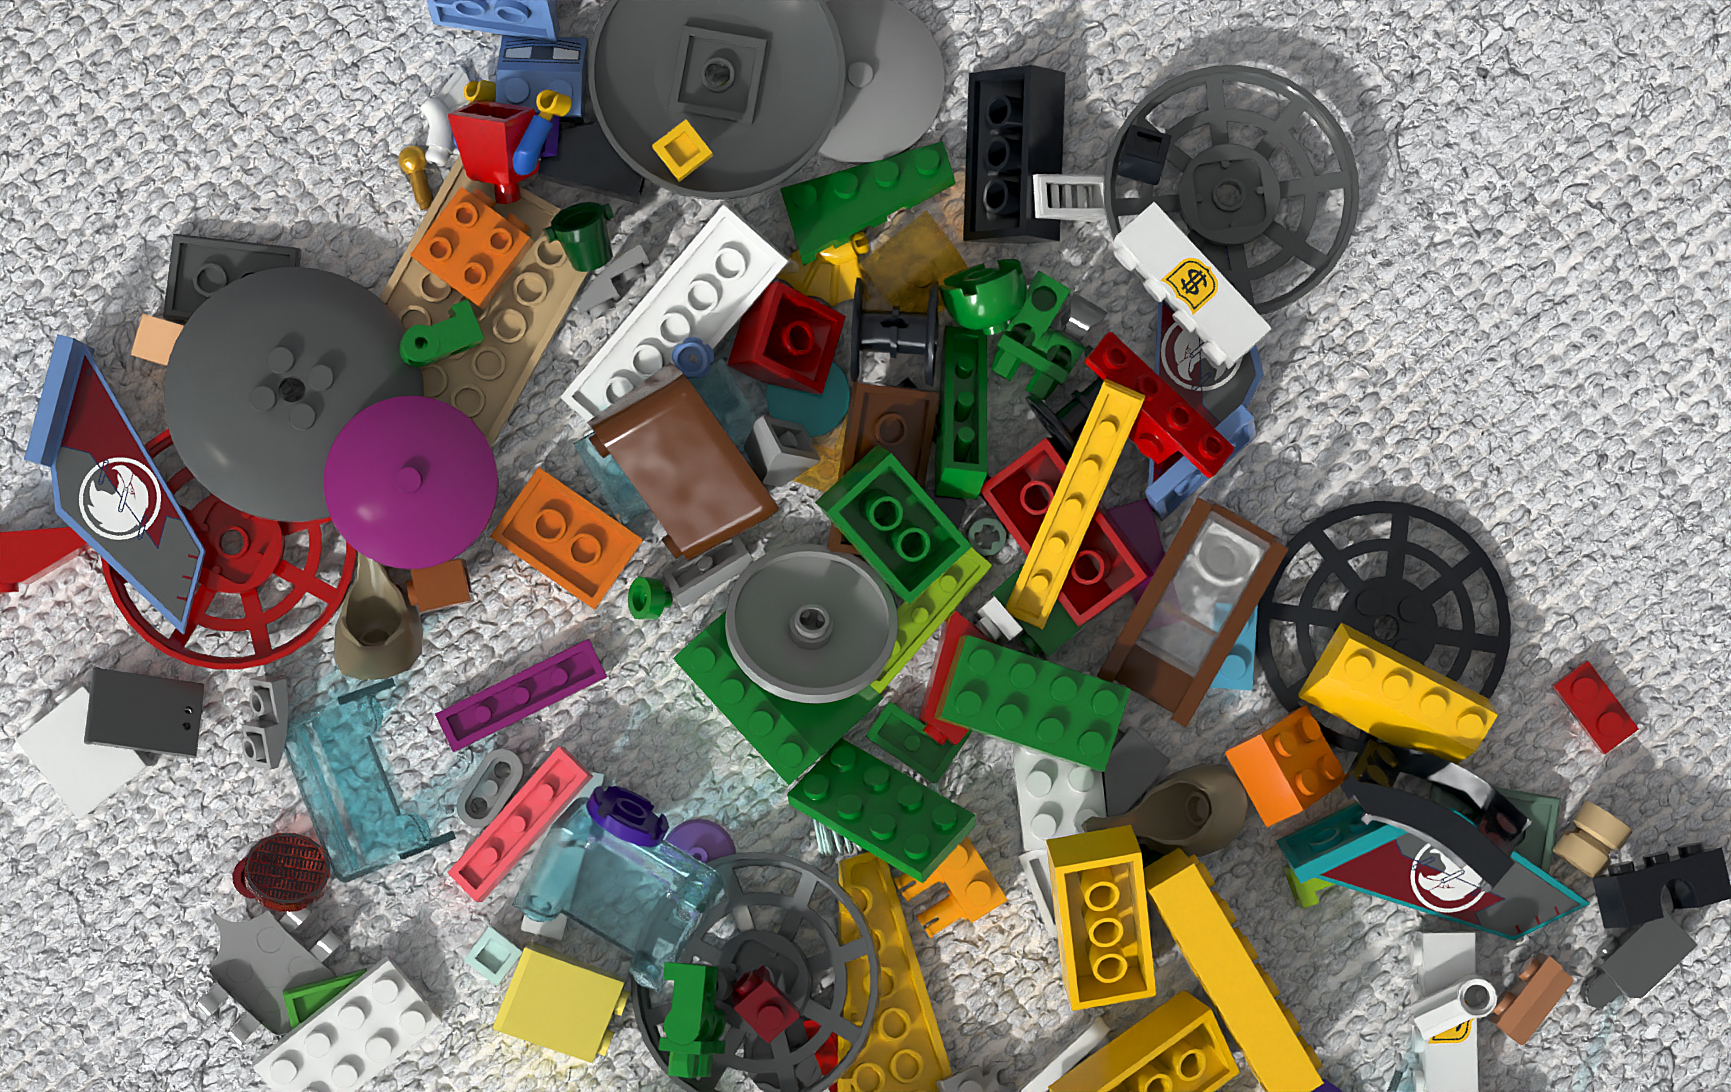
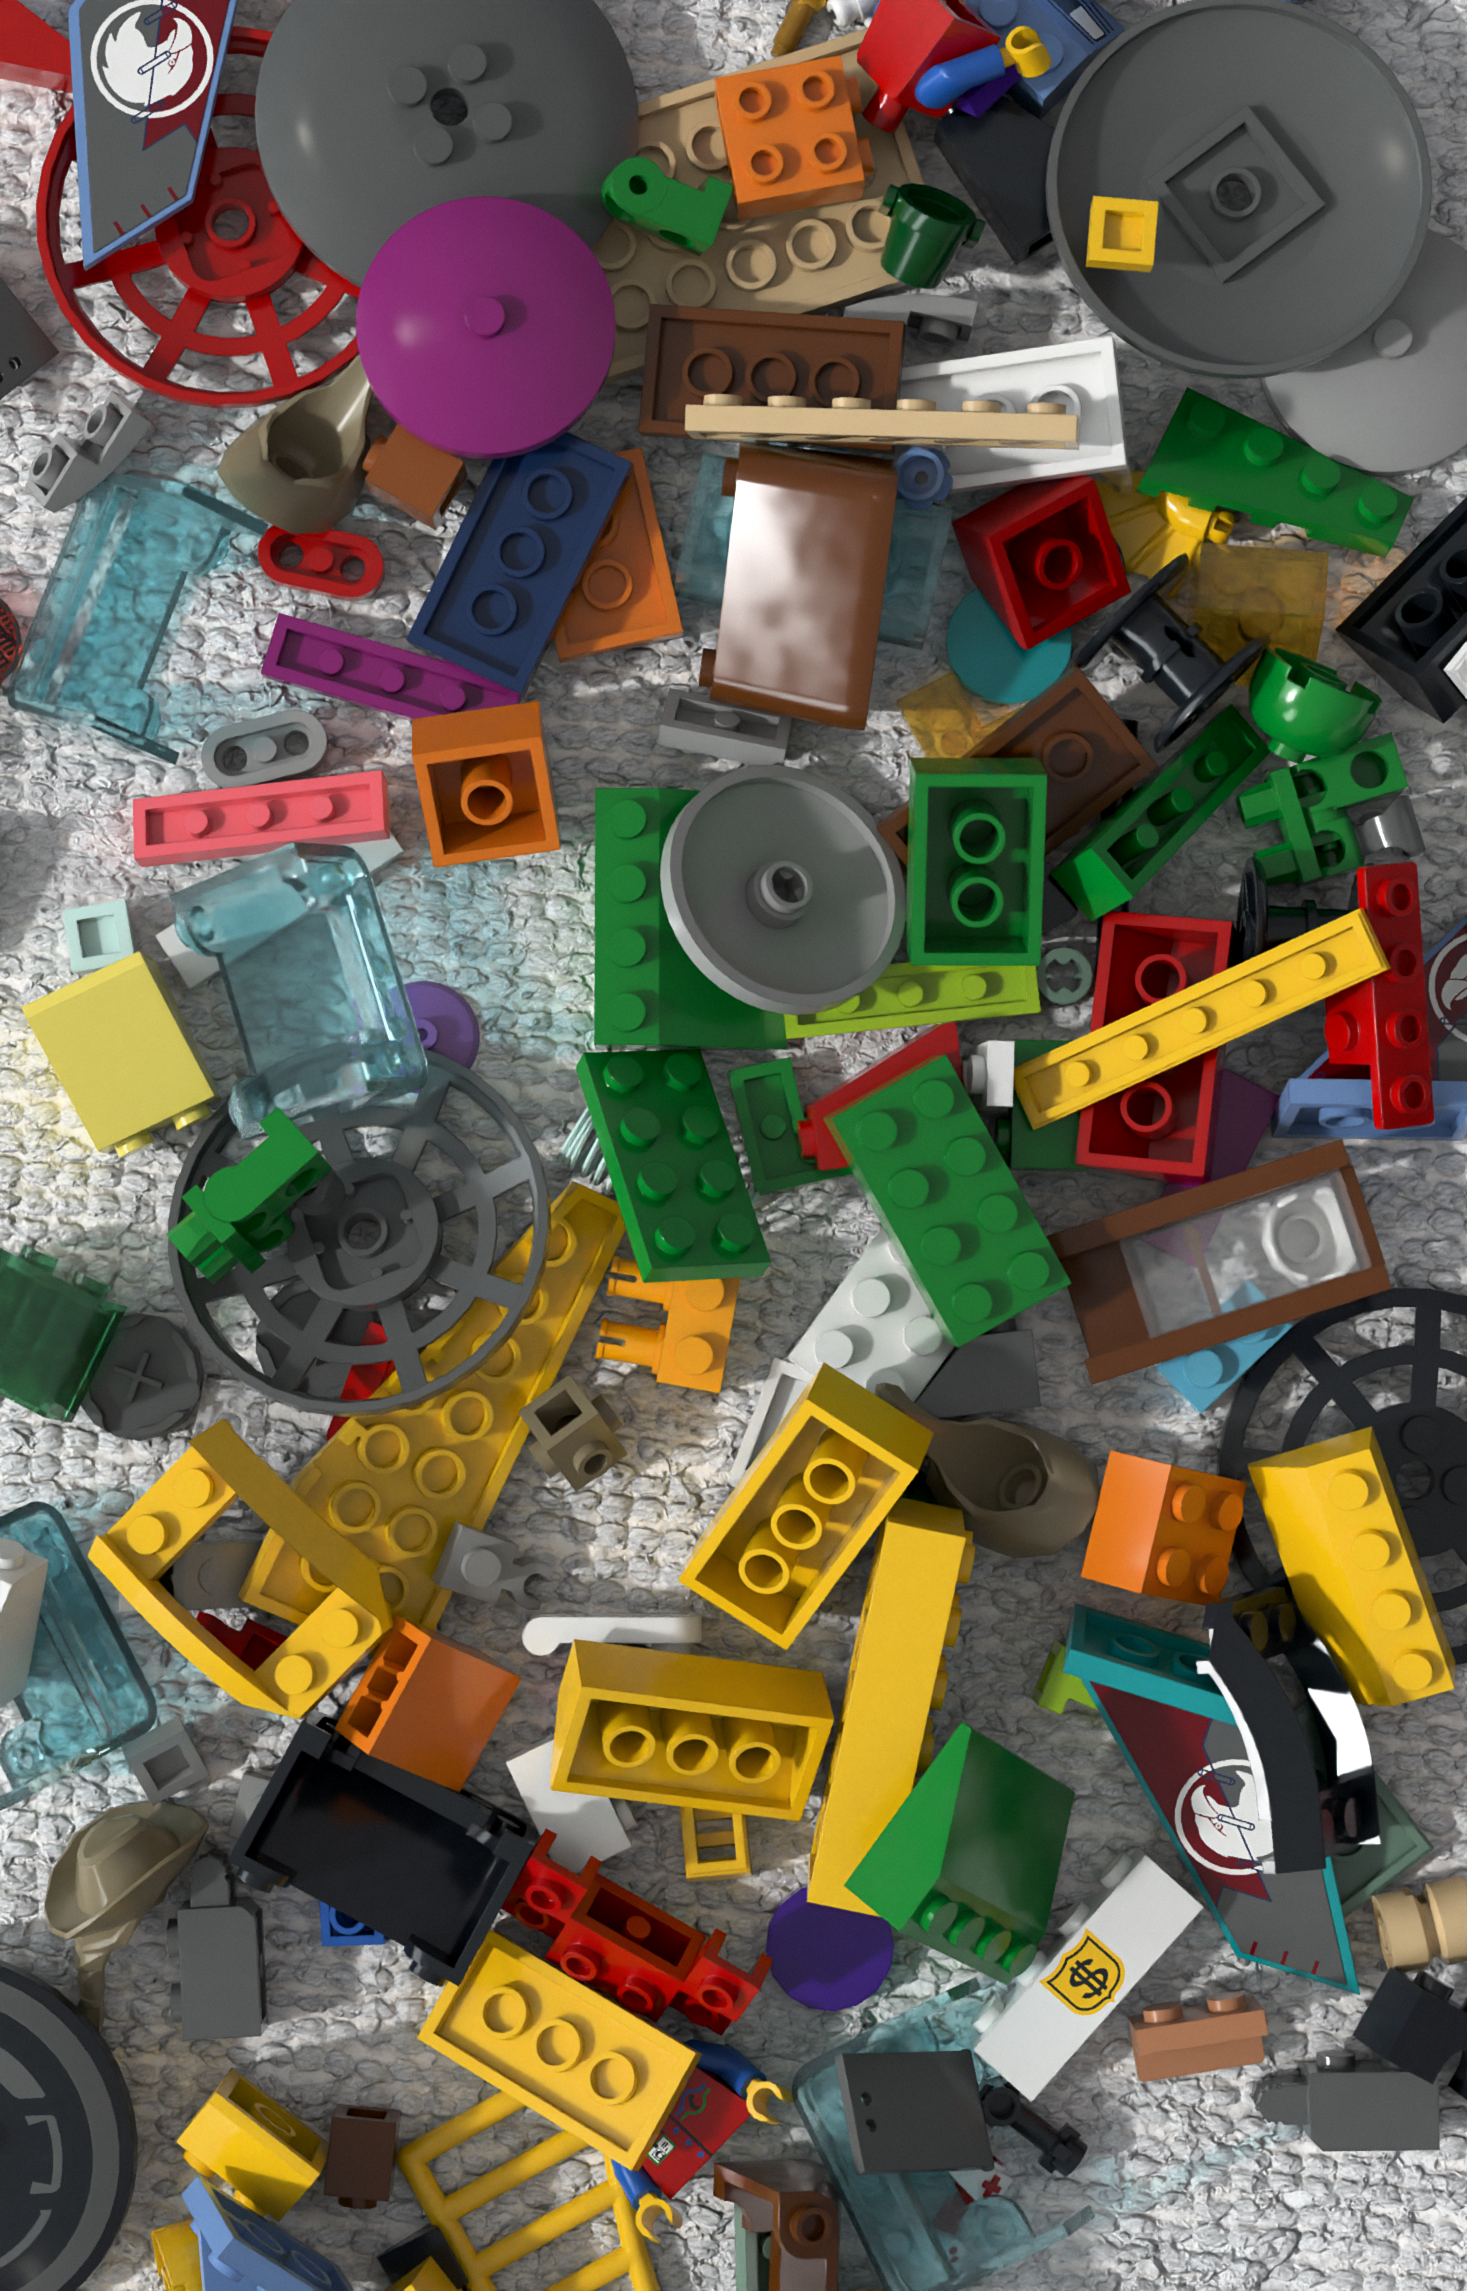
camera: 35 degrees right, 0 degrees up
(433, 669) = (322, 563): none -> red plate
(531, 579) = (520, 559): none -> dark blue plate
(573, 376) = (765, 356): none -> reddish brown plate
(616, 705) = (485, 784): none -> orange brick
(627, 816) = (386, 916): dark purple tile -> none
(648, 598) = (629, 702): green tile -> none
(664, 339) = (856, 423): none -> tan plate
(763, 1004) = (344, 1257): dark red bracket -> none
(779, 451) = (923, 667): light grey slope -> none
(954, 985) = (573, 1433): none -> dark tan brick
(1339, 1014) = (972, 1857): none -> green slope
(1447, 1006) = (1099, 1961): white piece -> none

